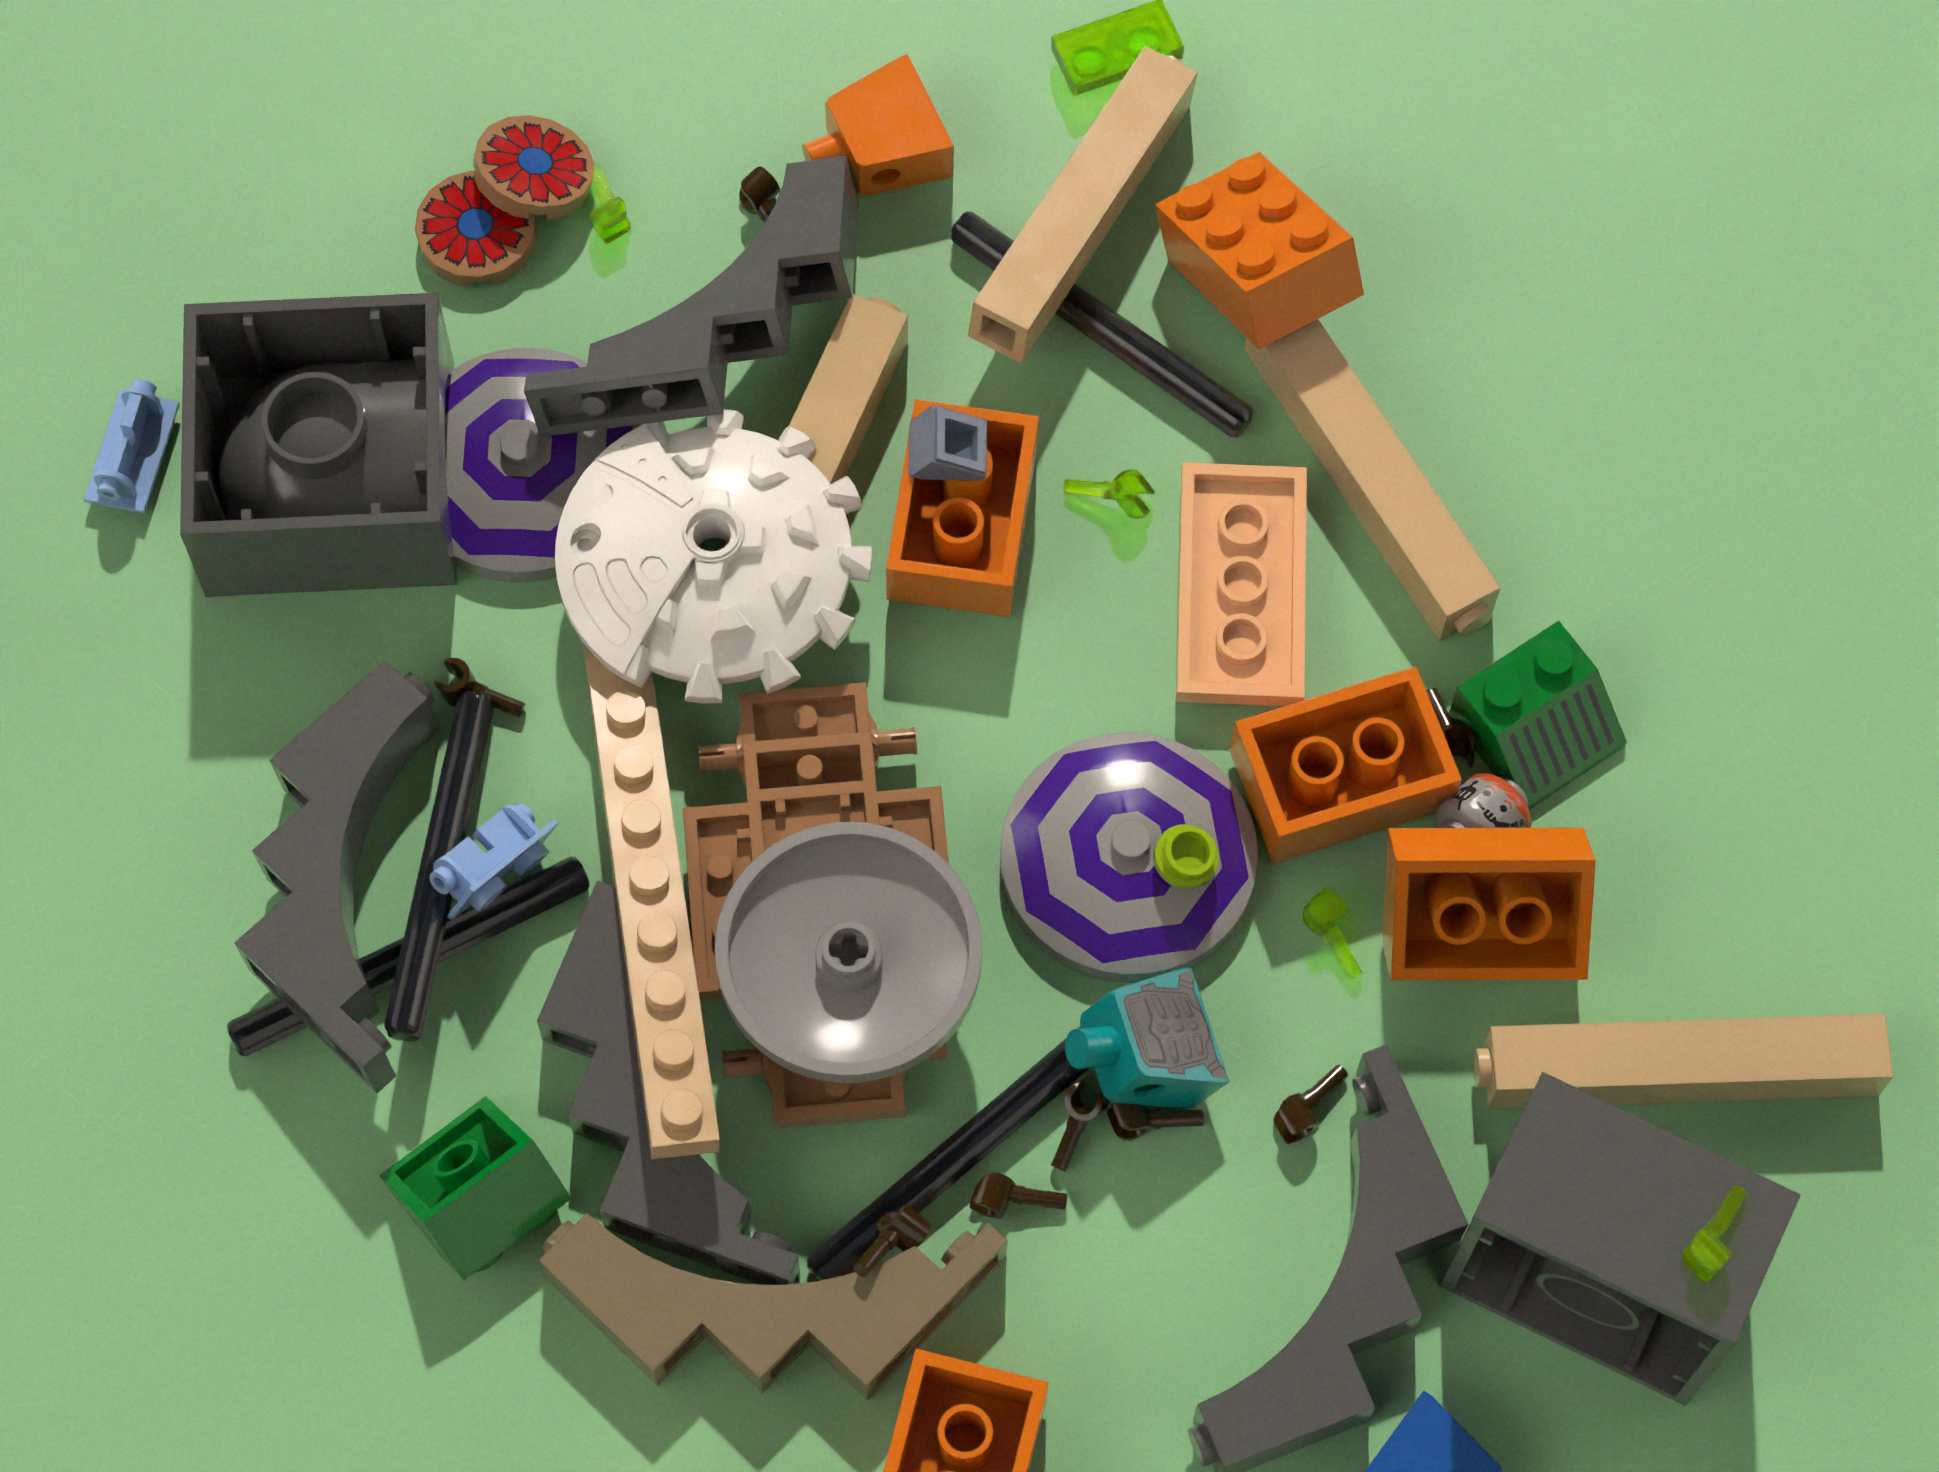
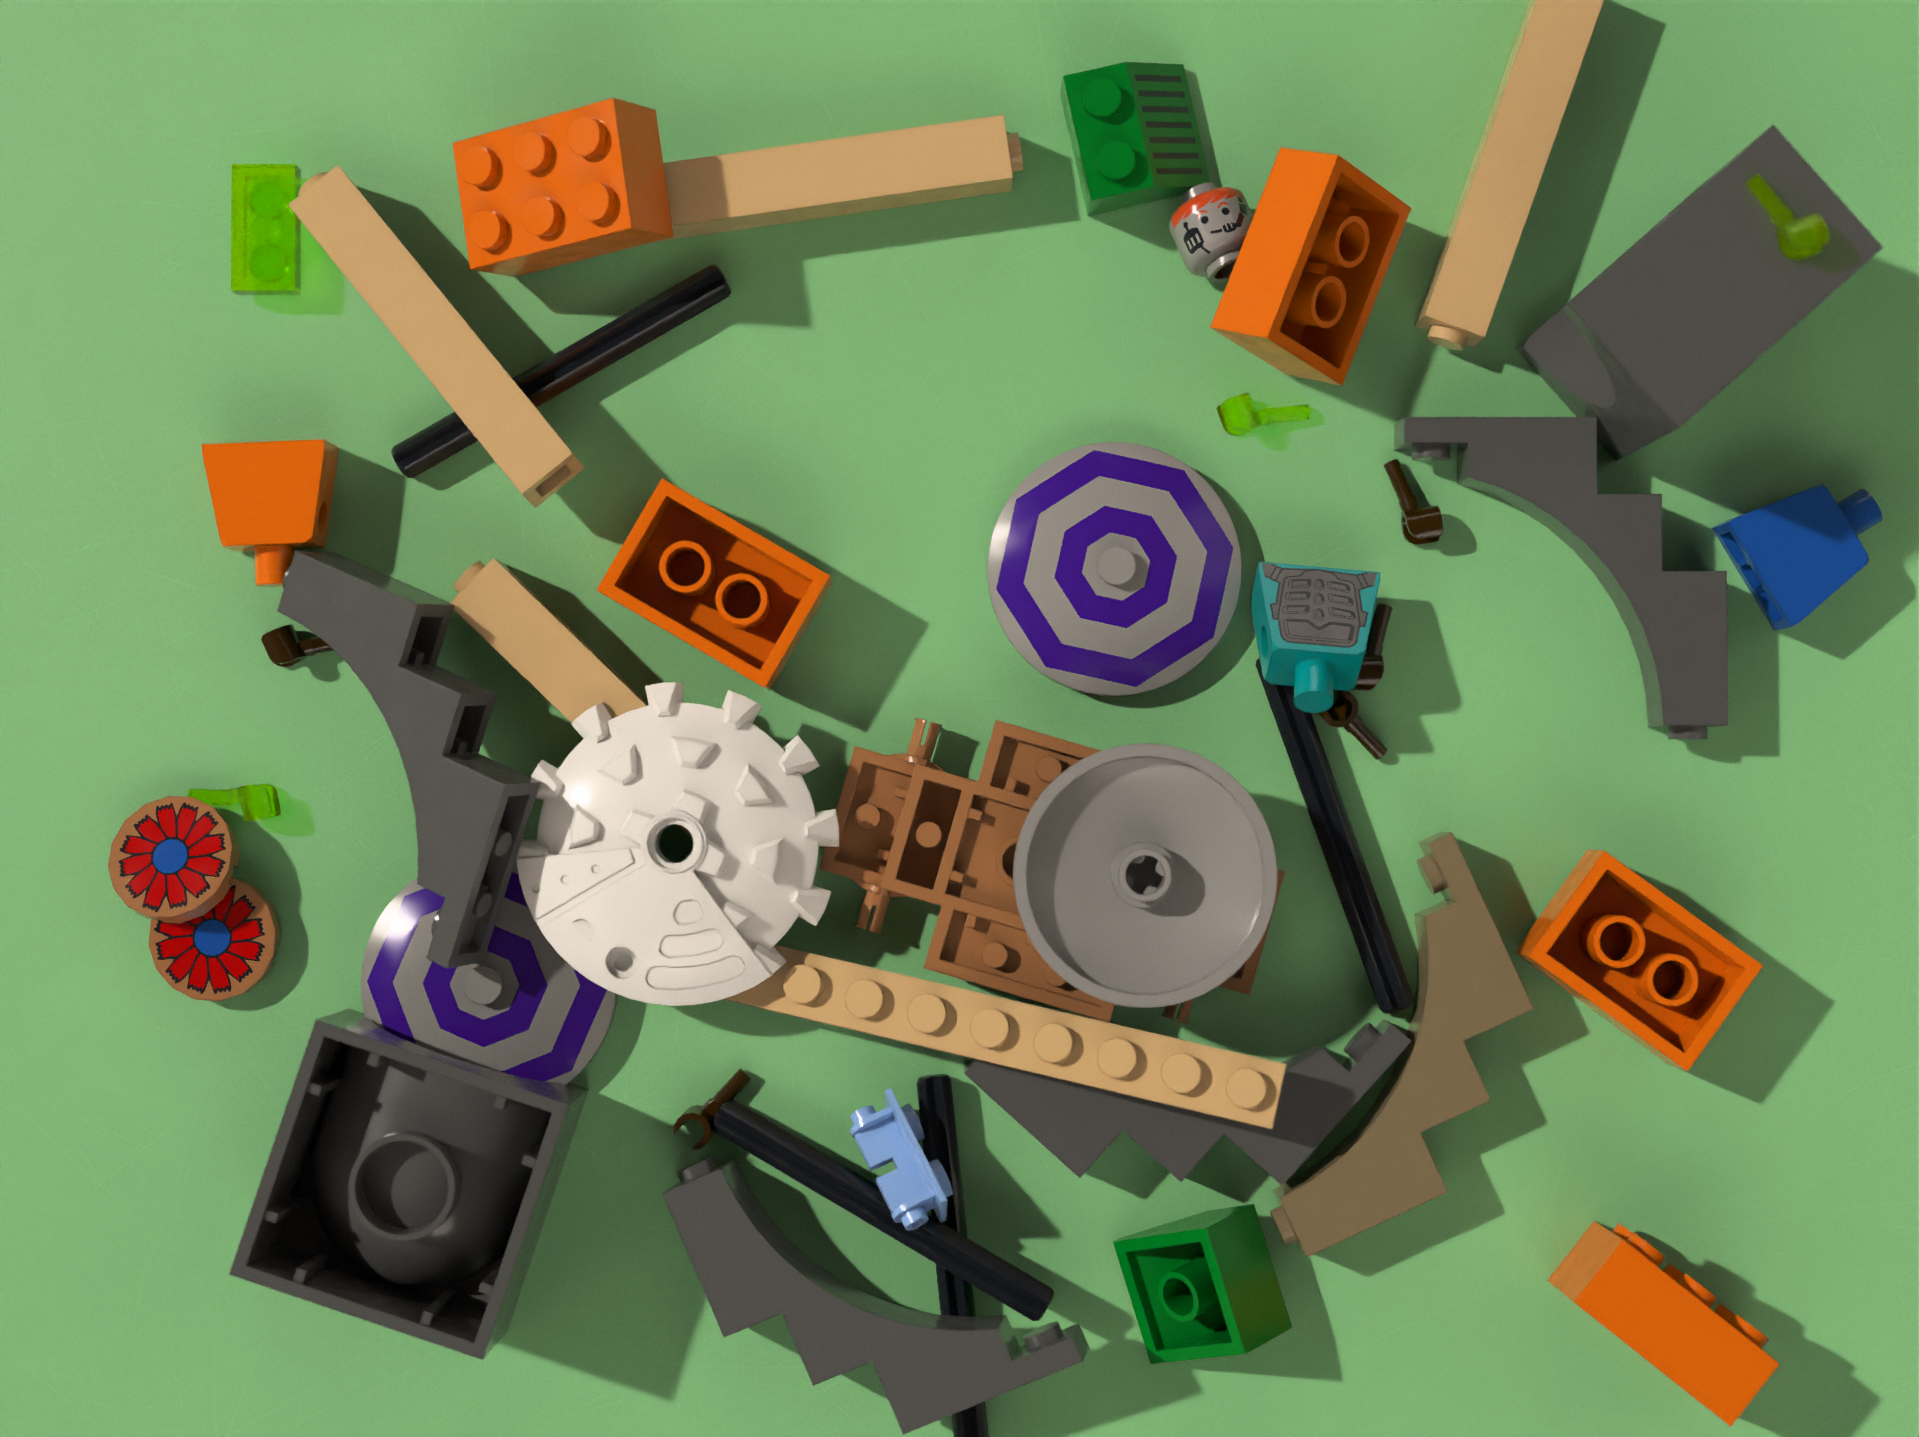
camera: 70 degrees left, 20 degrees up
(132, 448) = (328, 1354): light blue hinge -> none
(896, 1229) = (1396, 924): dark brown hand -> none
(947, 445) = (663, 579): sand blue slope -> none
(996, 1190) = (1385, 821): dark brown hand -> none
(1122, 489) = (746, 428): clear neon green hand -> none
(1186, 856) = (1154, 522): lime plate -> none
(1241, 584) = (889, 351): light nougat plate -> none
(1344, 764) = (1118, 335): orange brick -> none
(1458, 737) = (1116, 223): dark brown hand -> none

